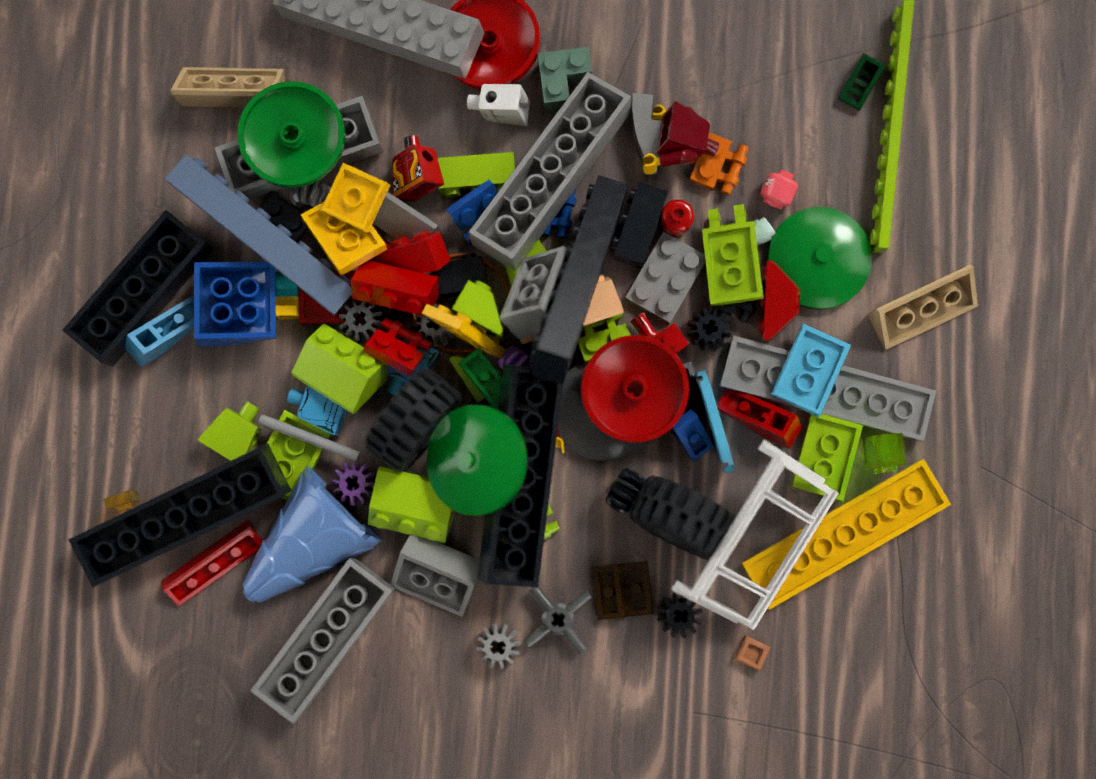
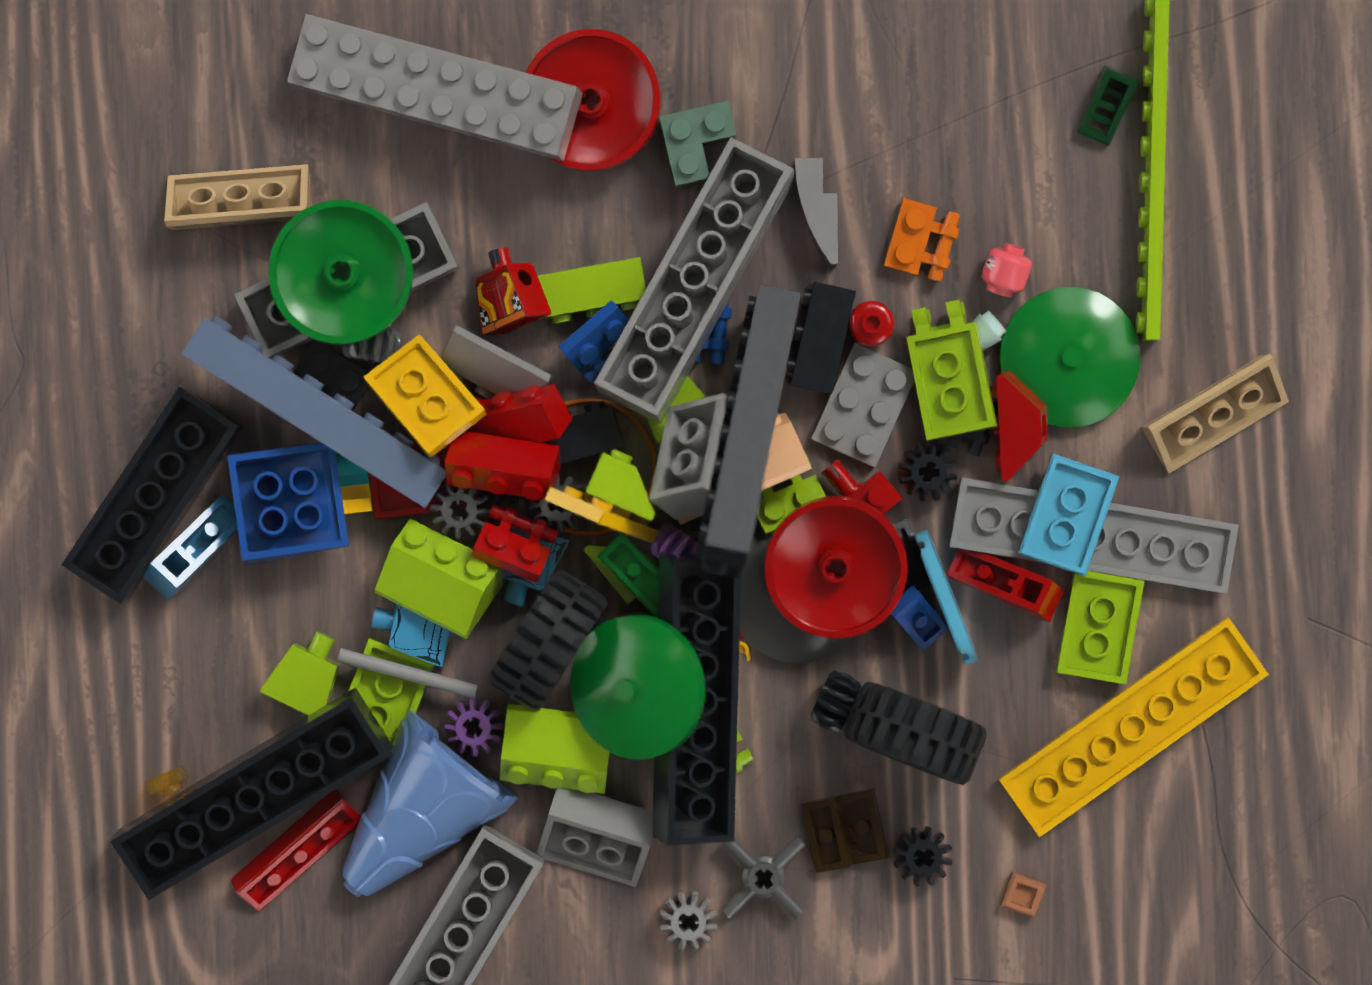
camera: 10 degrees left, 5 degrees up
(355, 197) = (436, 350): yellow plate -> none
(501, 103) = (628, 191): white torso -> none
(681, 138) = (866, 217): dark red torso -> none
(716, 563) = (1033, 647): white piece -> none
(884, 452) = (1173, 616): clear neon green brick -> none

